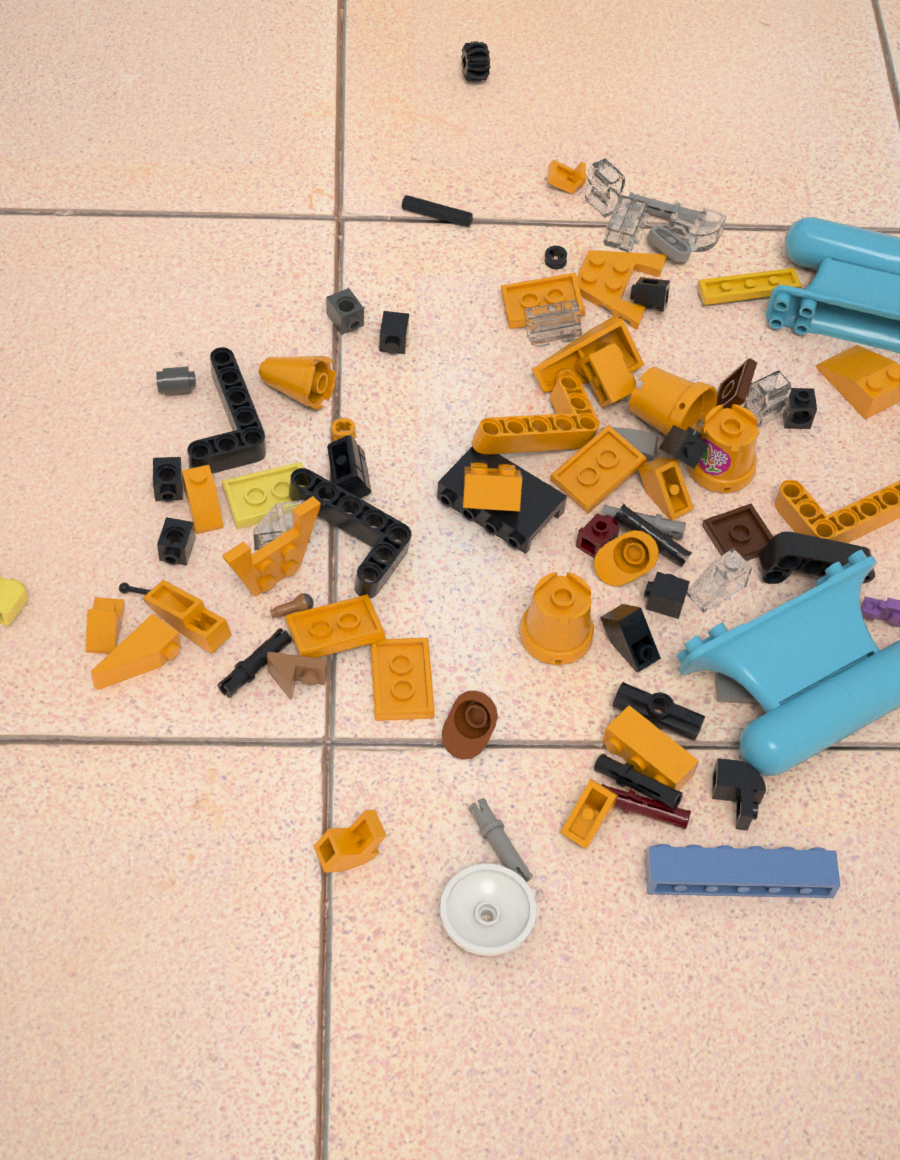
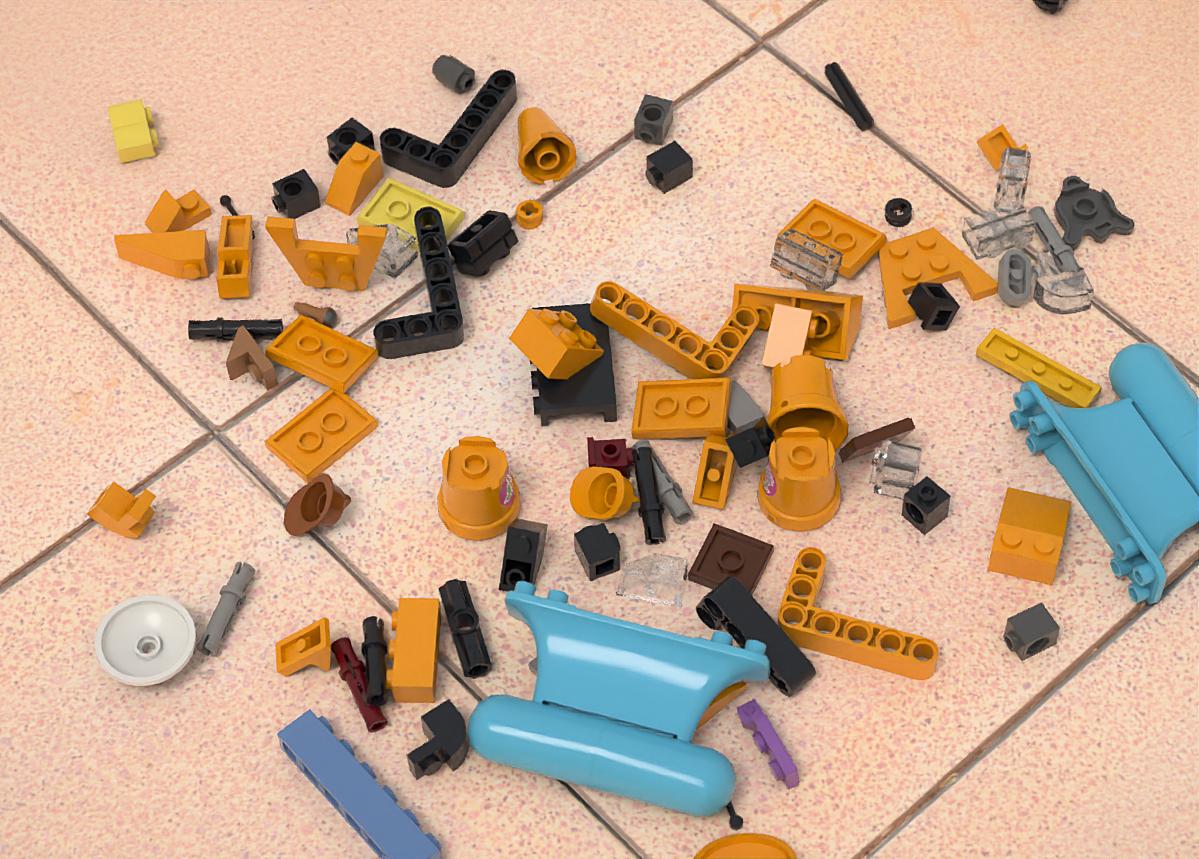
camera: 55 degrees right, 0 degrees up
(653, 179) = (1088, 213): none -> dark grey tile

